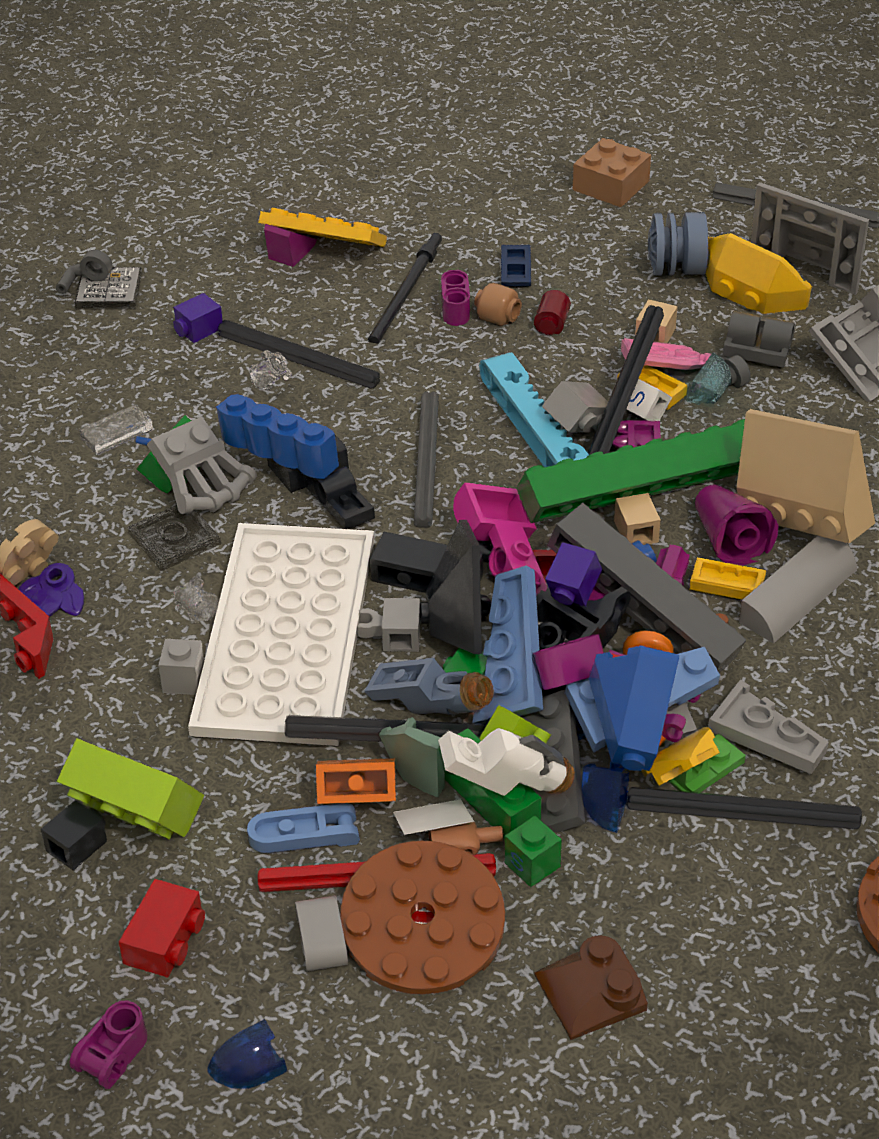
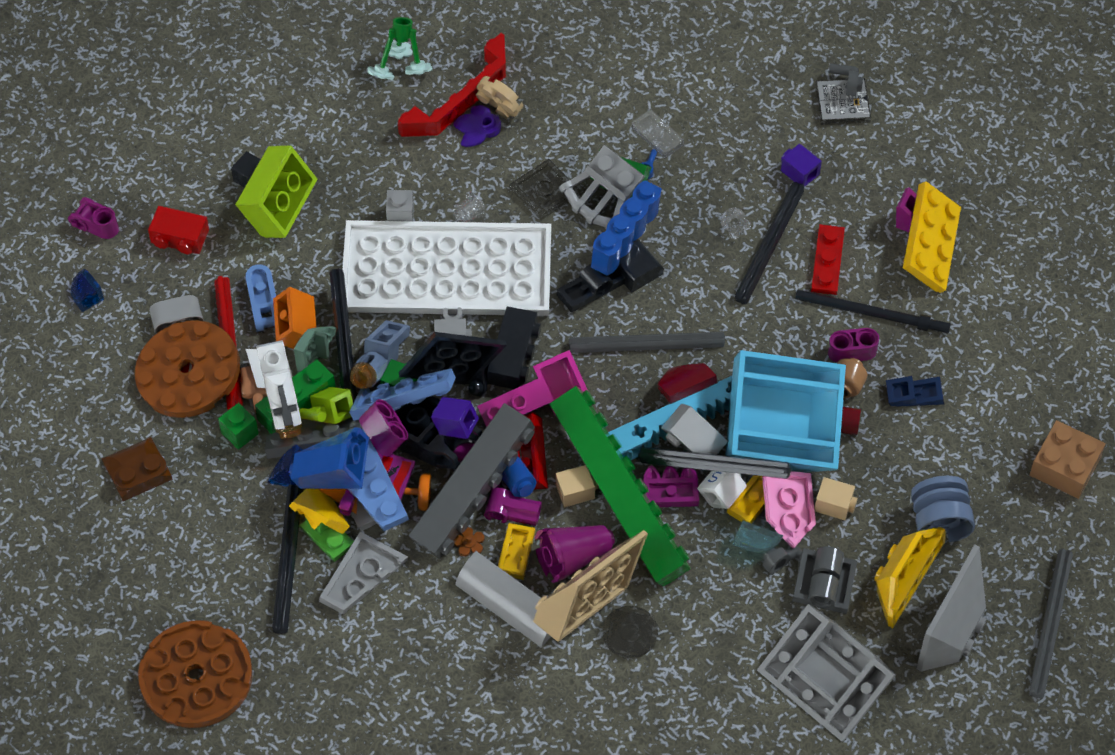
camera: 85 degrees right, 15 degrees up
(330, 313) = (828, 259): none -> red plate
(496, 417) = (685, 381): none -> dark red slope
(557, 333) = (786, 410): none -> medium azure slope

